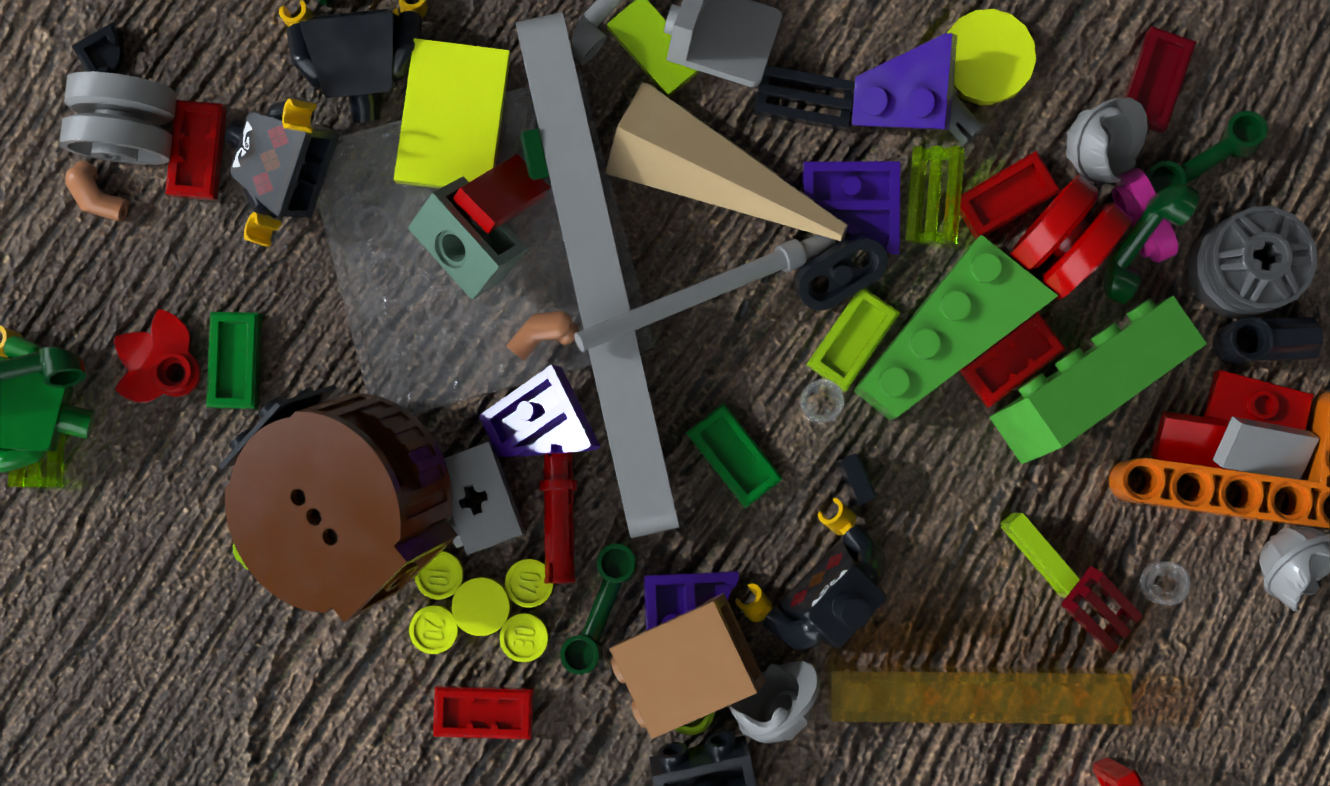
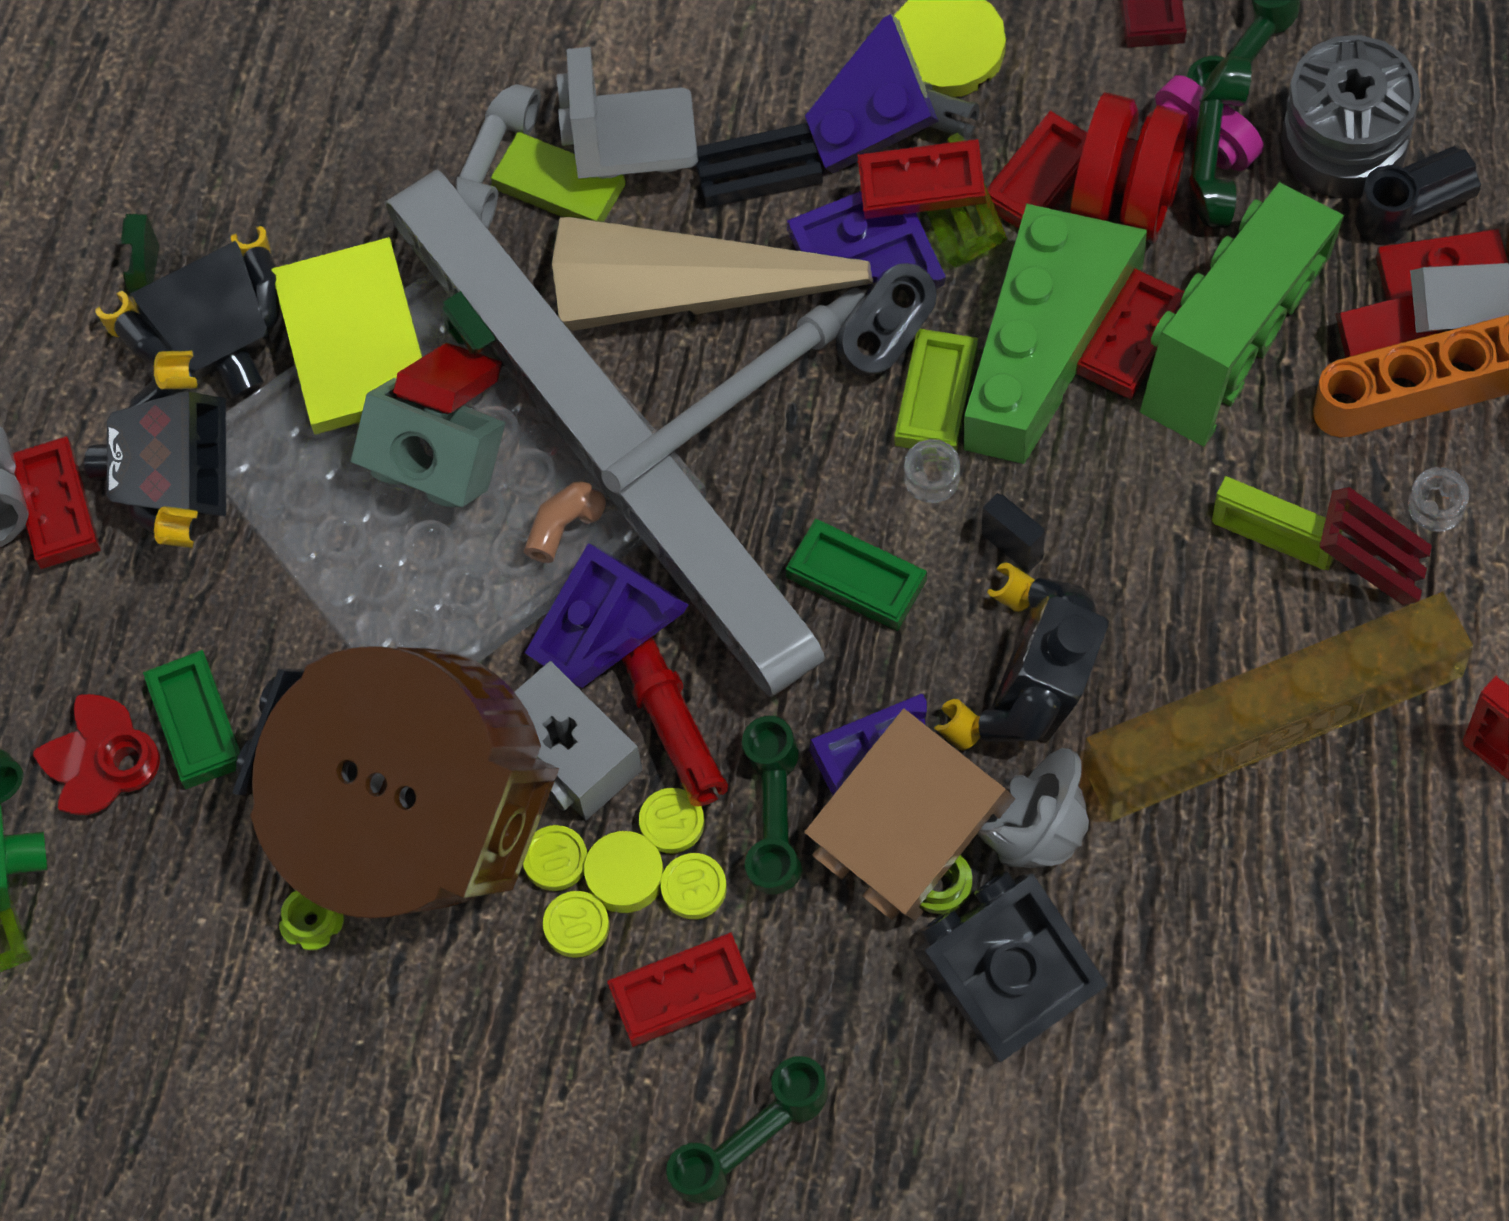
camera: 20 degrees left, 20 degrees down
(915, 175) = (921, 179): none -> red plate
(1107, 139) = (1122, 57): light grey piece -> none

